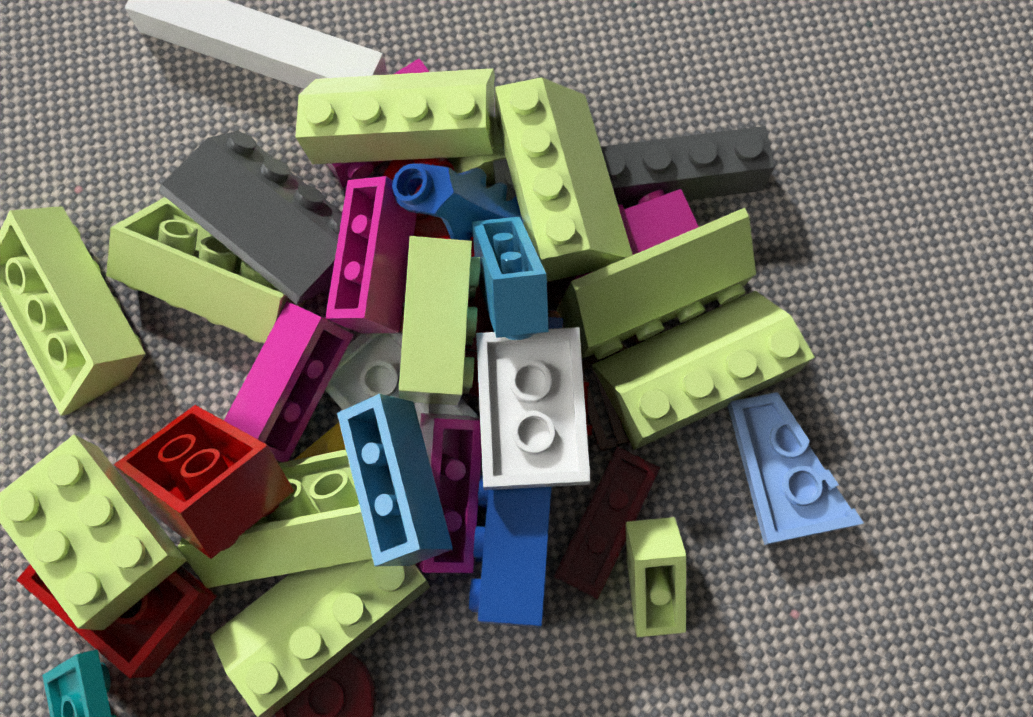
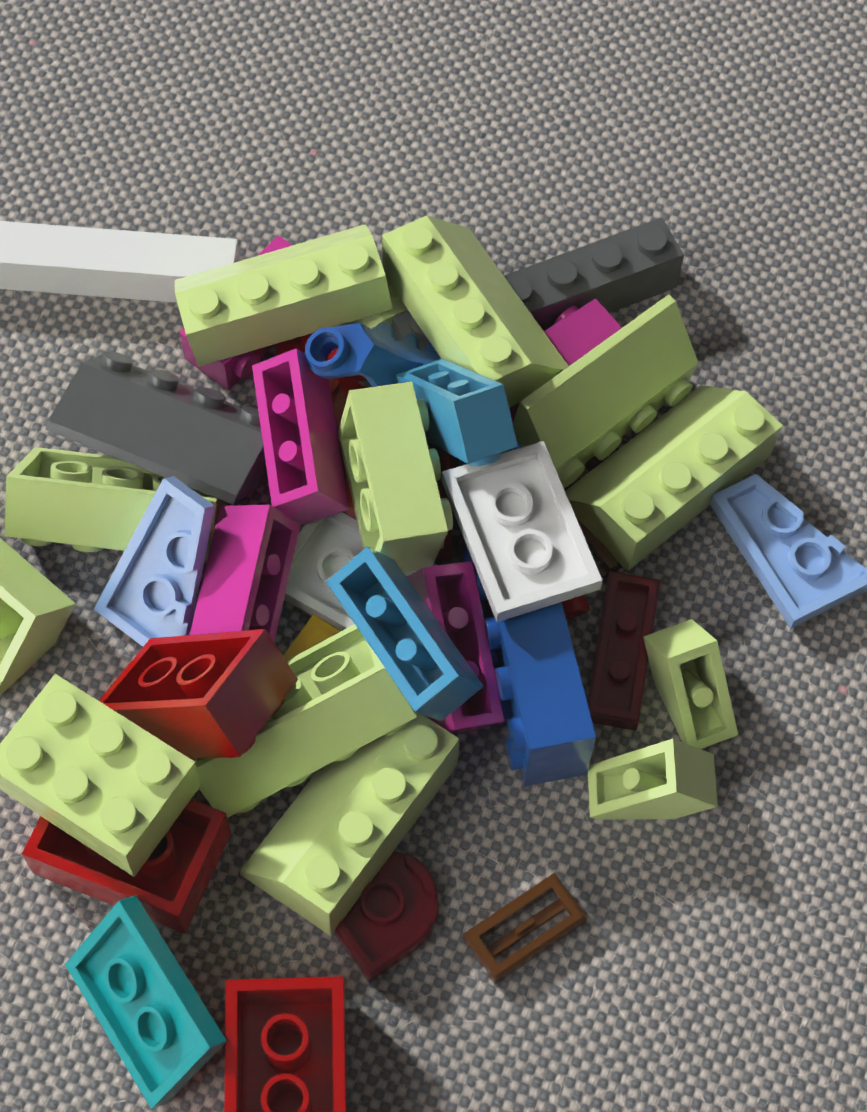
camera: 20 degrees left, 10 degrees down
(221, 343) = (162, 566): none -> light blue wing
(592, 662) = (653, 783): none -> yellowish green slope

